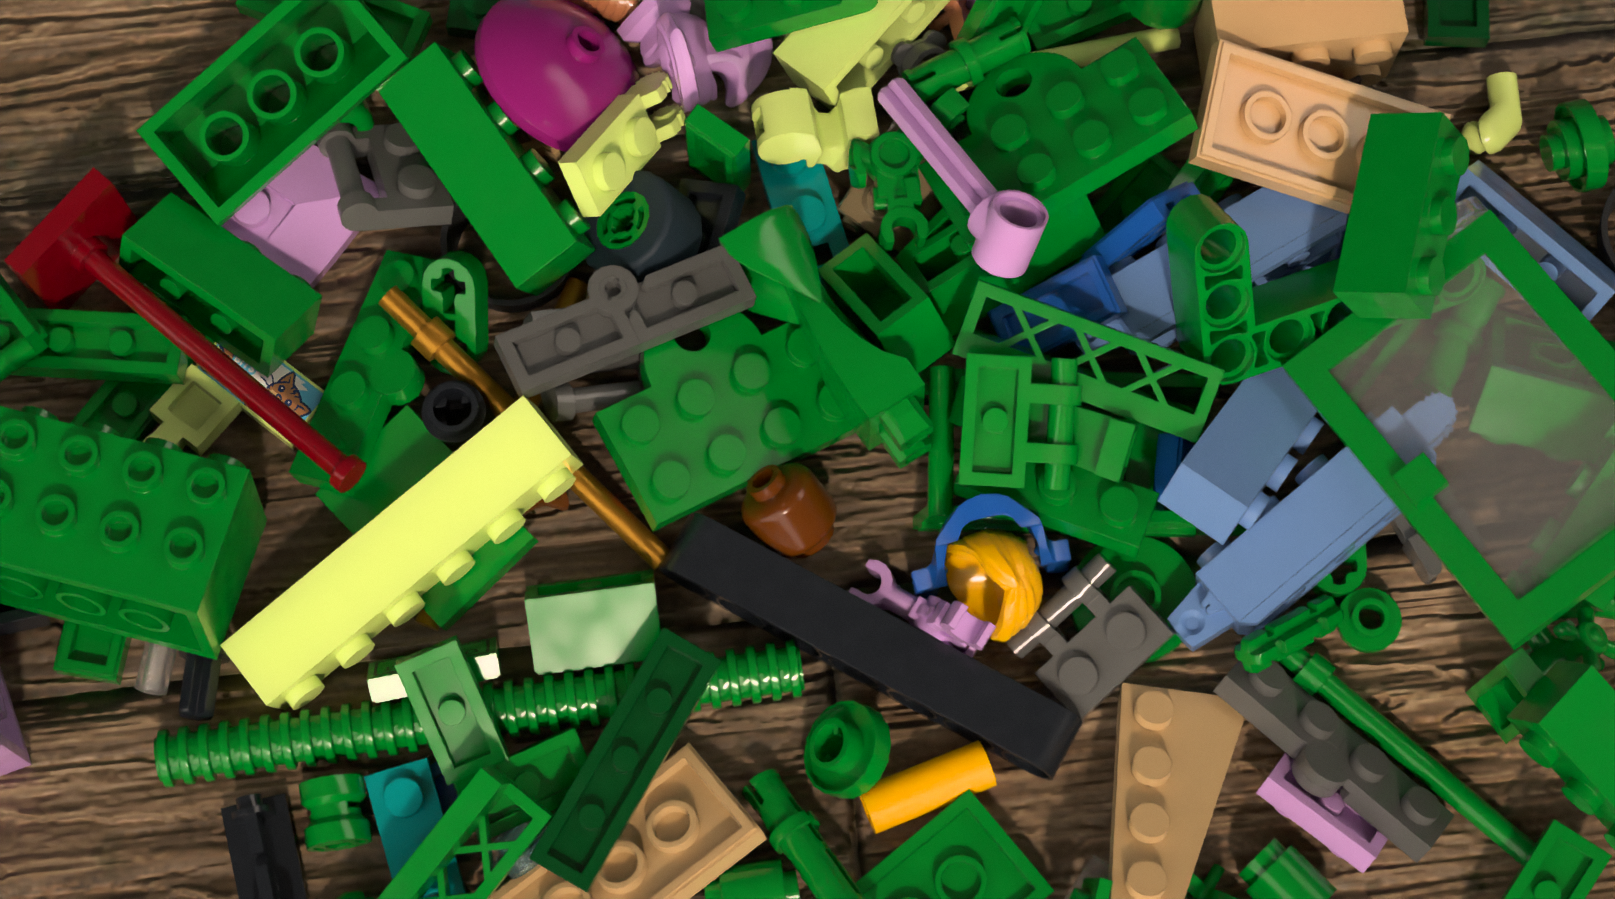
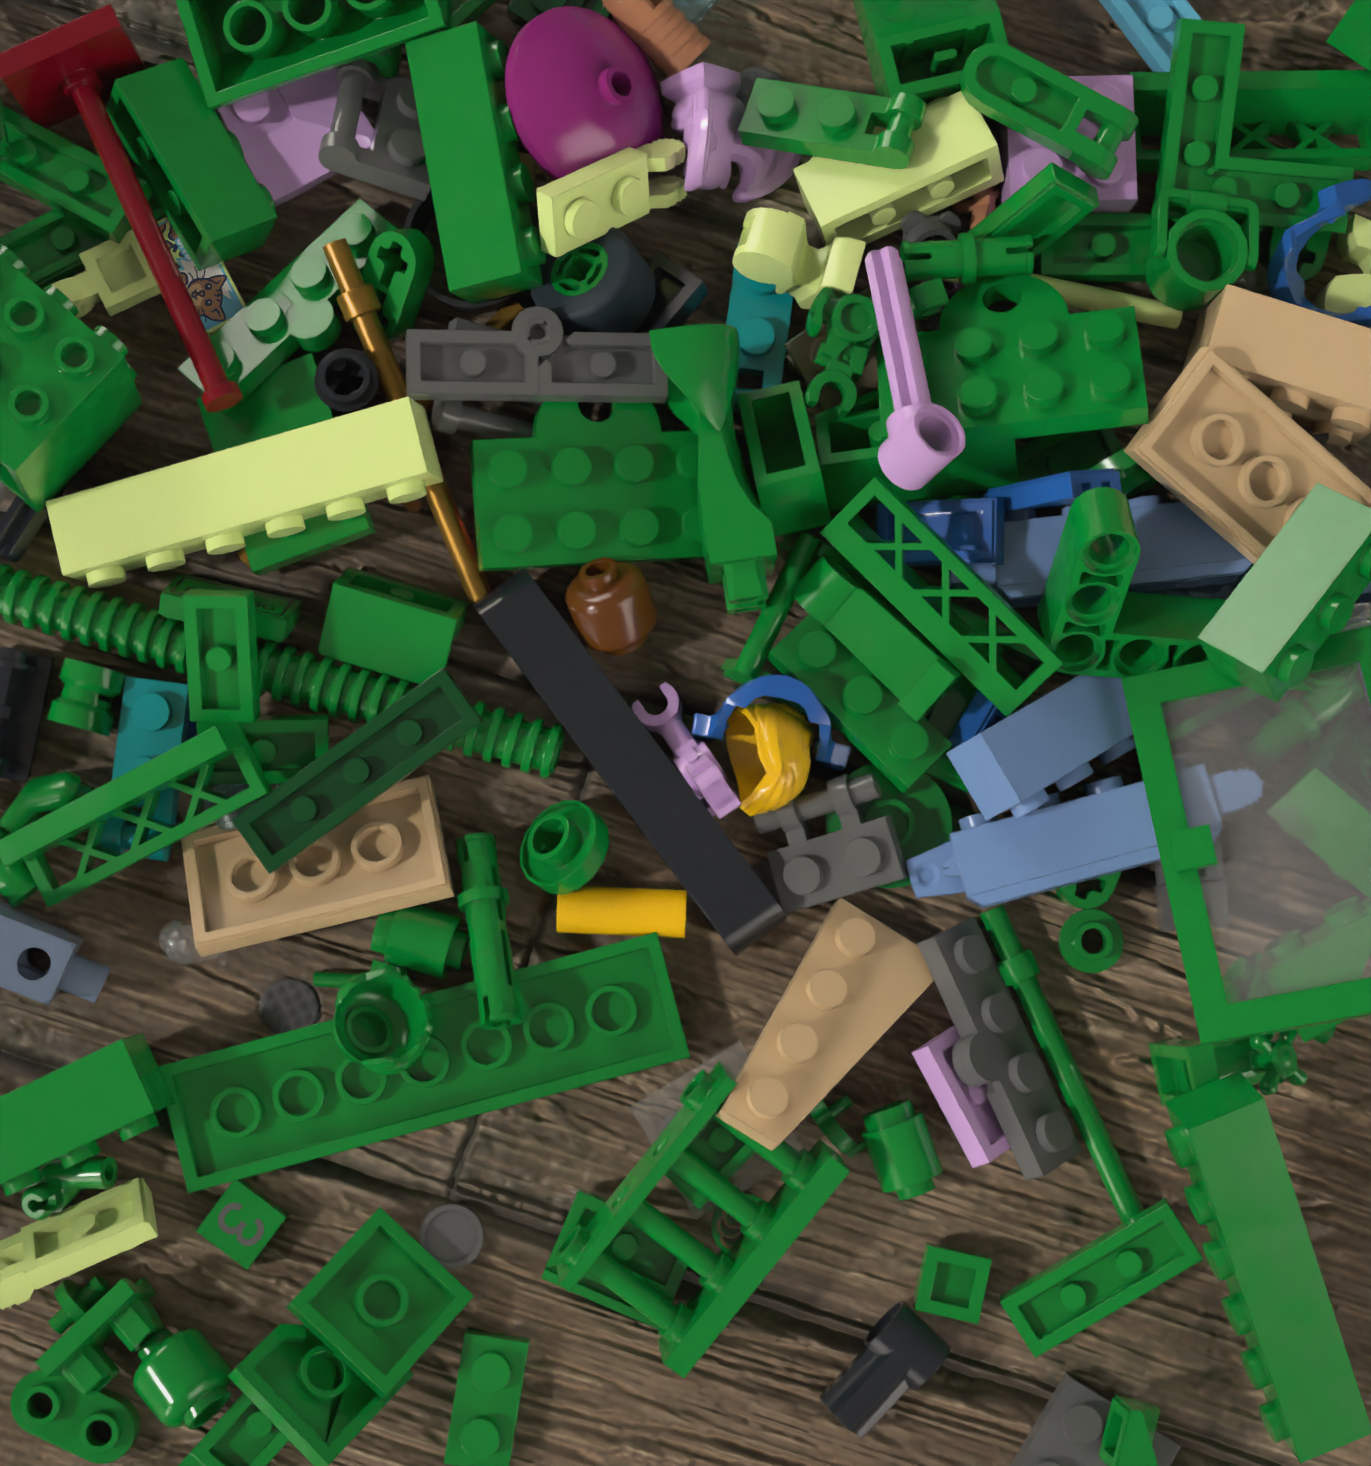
camera: 20 degrees right, 10 degrees up
(717, 149) = (697, 240): green tile -> none
(997, 421) = (830, 615): green plate -> none
(1288, 633) = (1010, 924): green axle -> none

